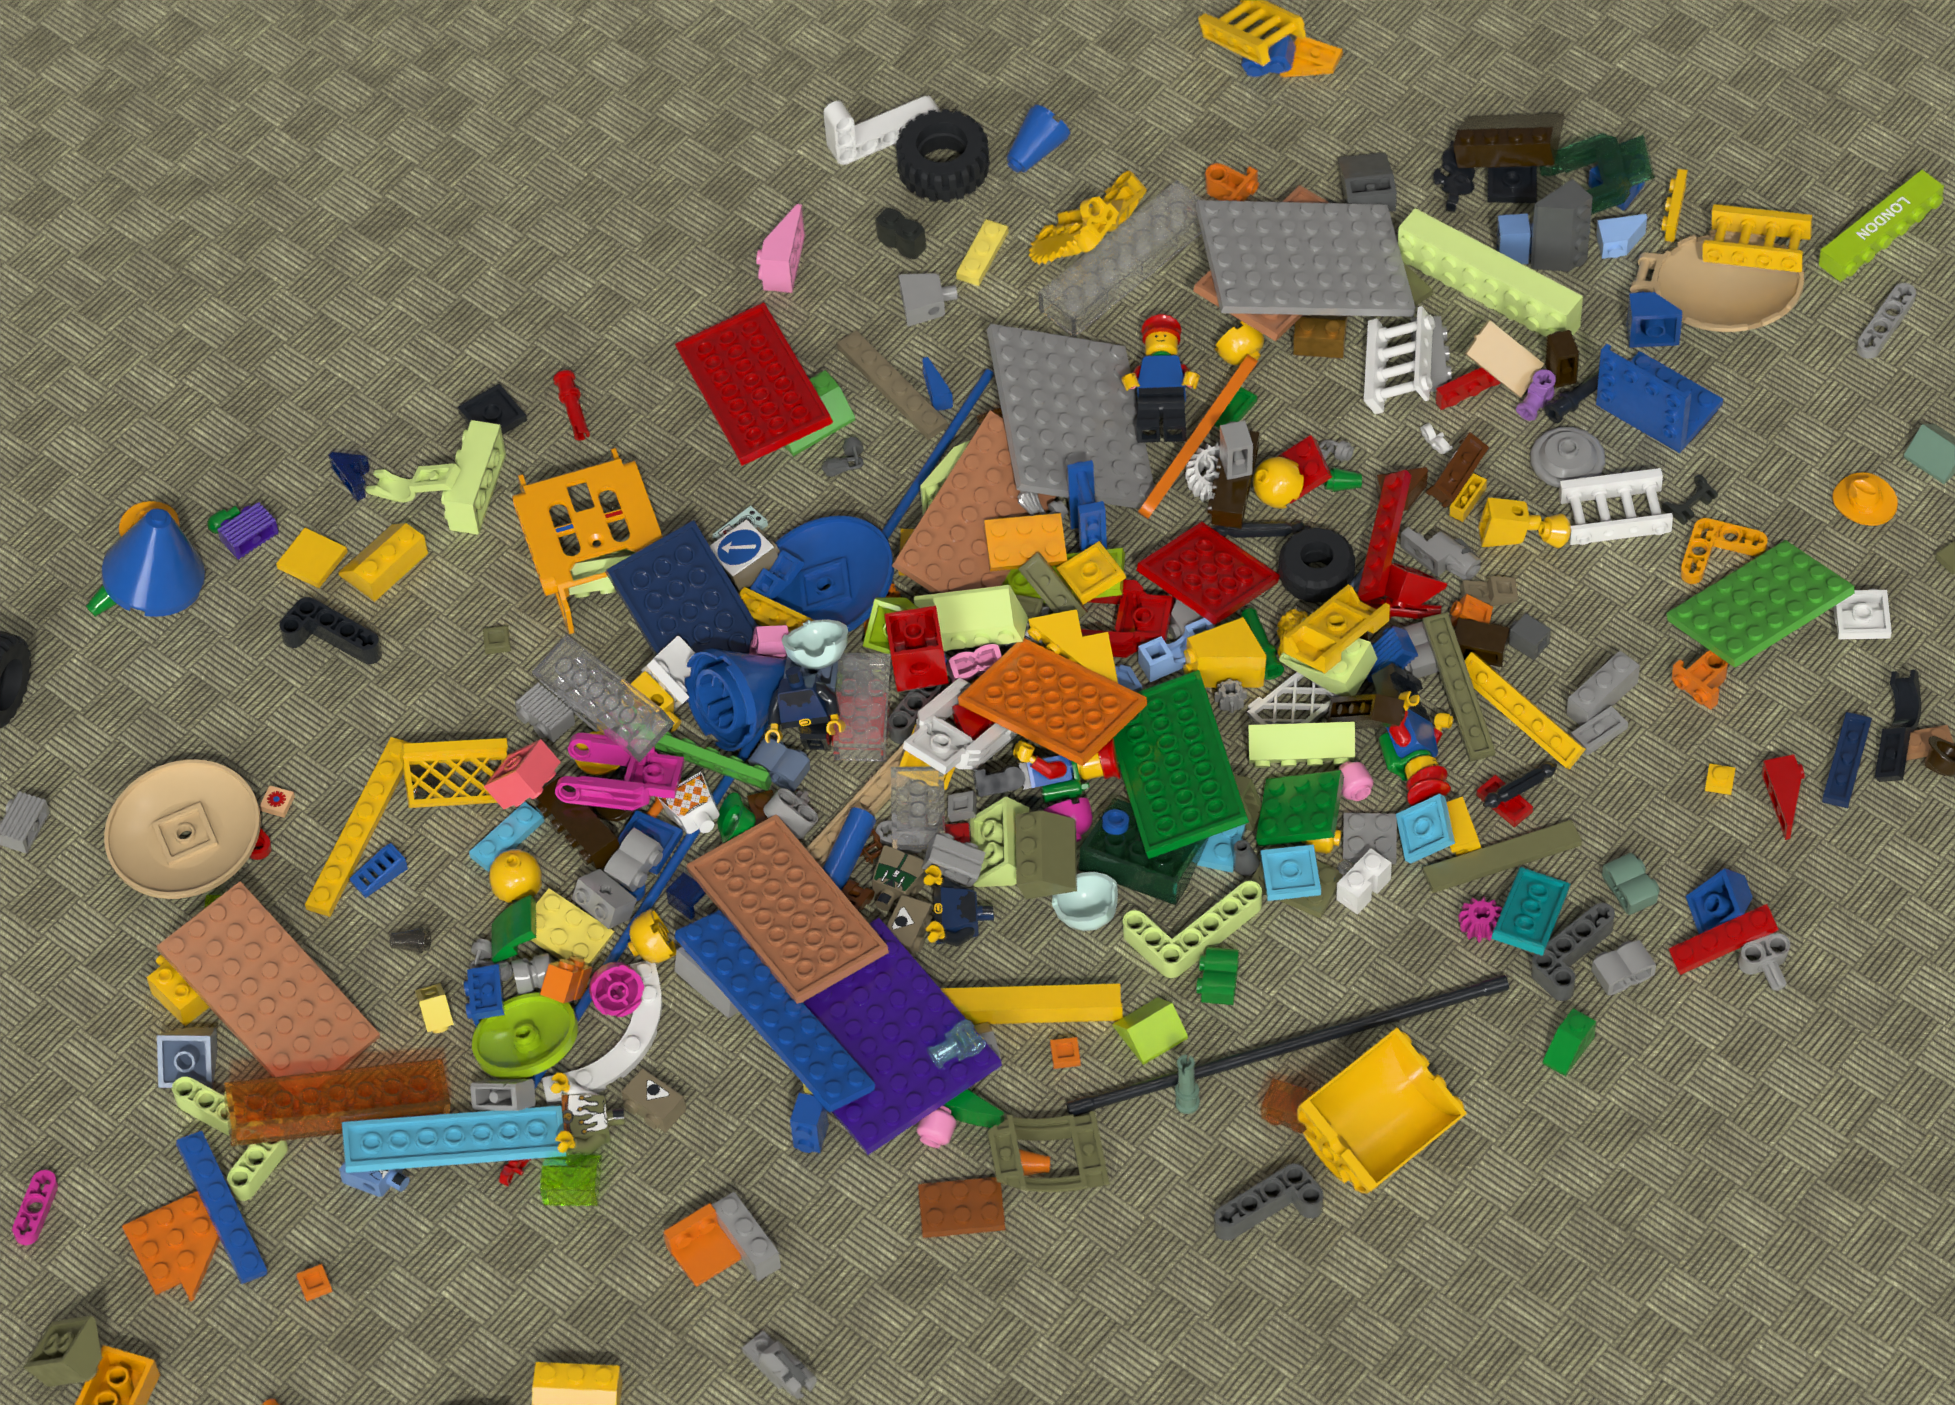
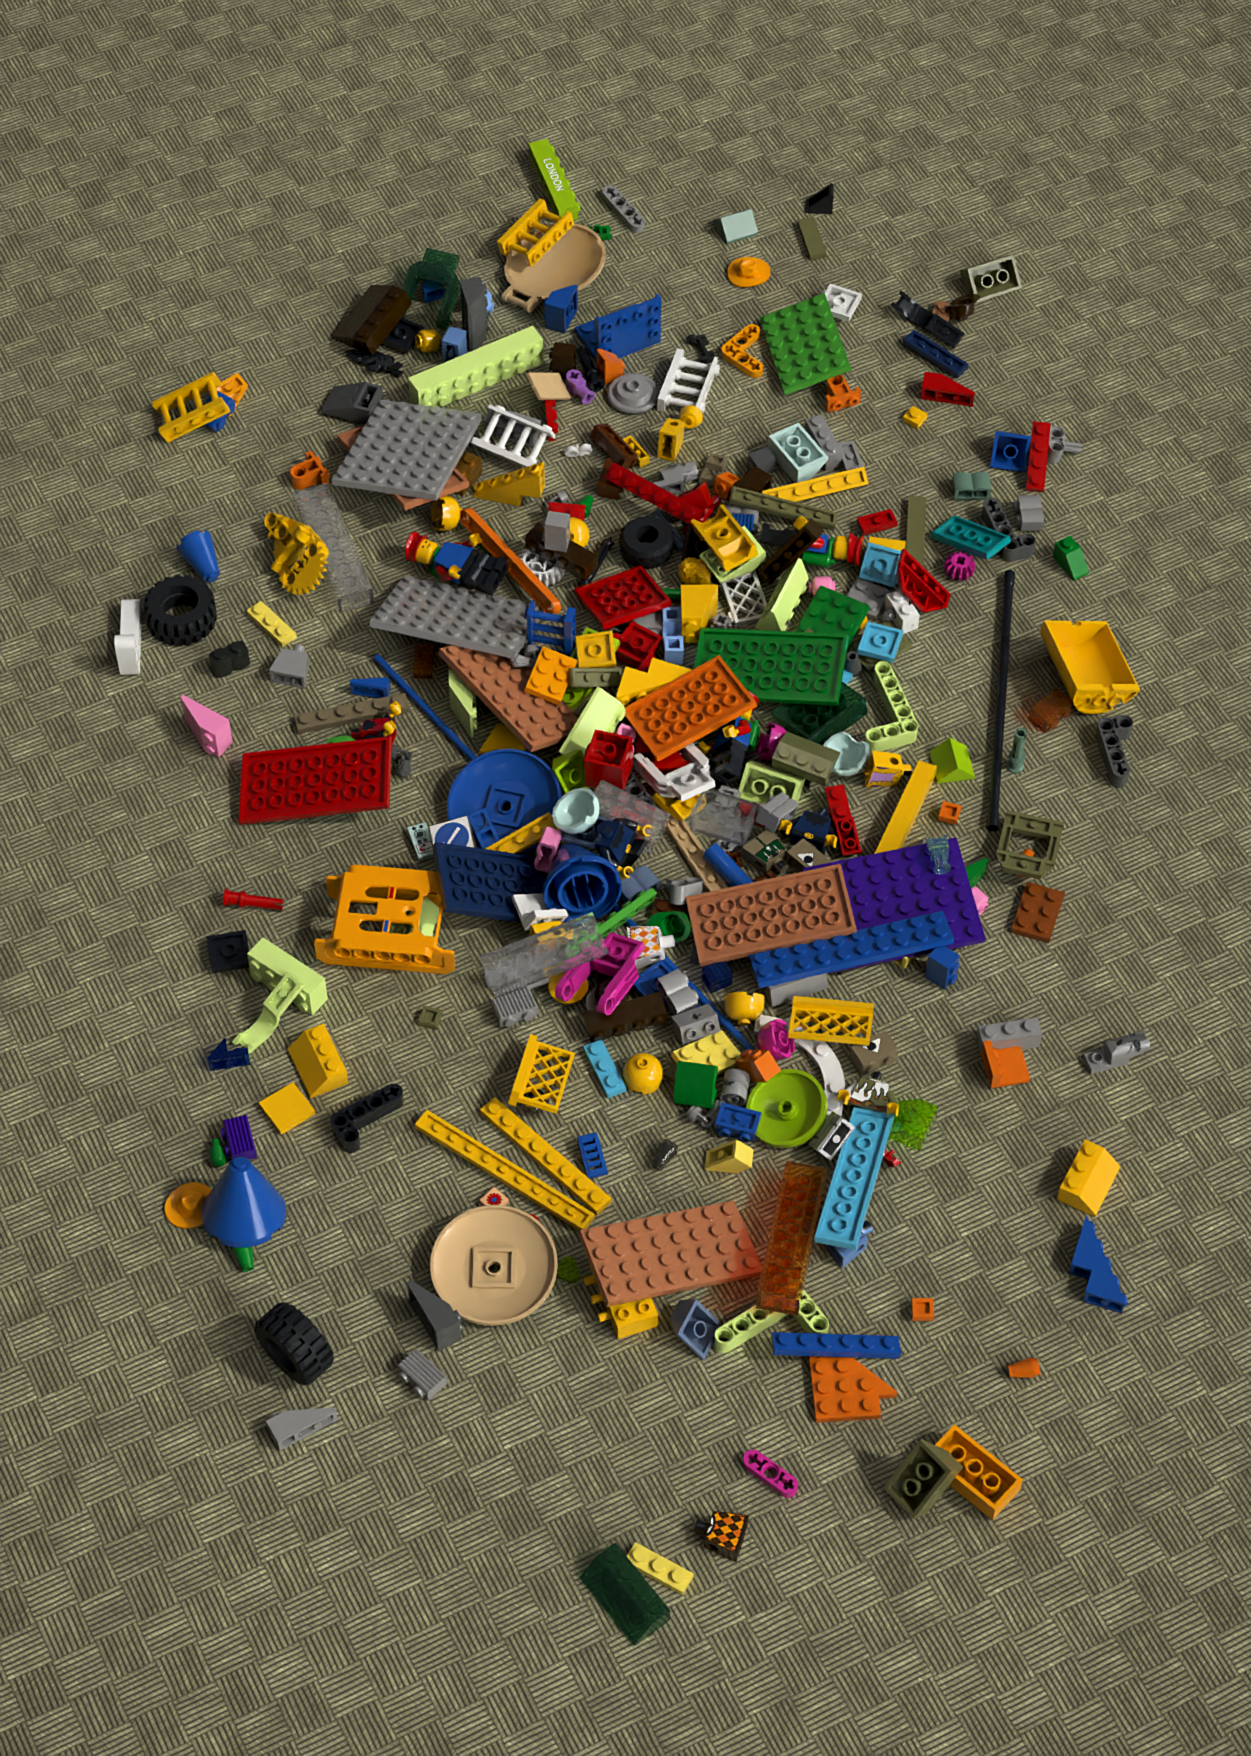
camera: 70 degrees left, 0 degrees up
(90, 799) = (436, 1316): none -> dark grey slope
(318, 794) = (504, 1171): none -> yellow plate
(522, 774) = (571, 1032): coral brick -> none
(691, 1027) = (831, 1011): none -> yellow fence
(868, 419) = (379, 727): none -> torso
(986, 943) = (842, 820): none -> red slope
(1089, 953) = (885, 769): none -> yellow torso
(1115, 822) = (796, 714): blue tile -> none
(1219, 976) = (933, 710): green brick -> none
(1321, 392) = (513, 485): none -> yellow slope
(1404, 879) = (920, 585): none -> red wedge
(1516, 205) = (428, 340): none -> yellow head
(1520, 785) = (873, 507): black wheel -> none
(1559, 664) = (797, 453): none -> light aqua slope
(1587, 409) = (609, 366): none -> orange slope
(1674, 205) = (476, 266): yellow plate -> none
(1818, 316) = (602, 229): none -> green piece

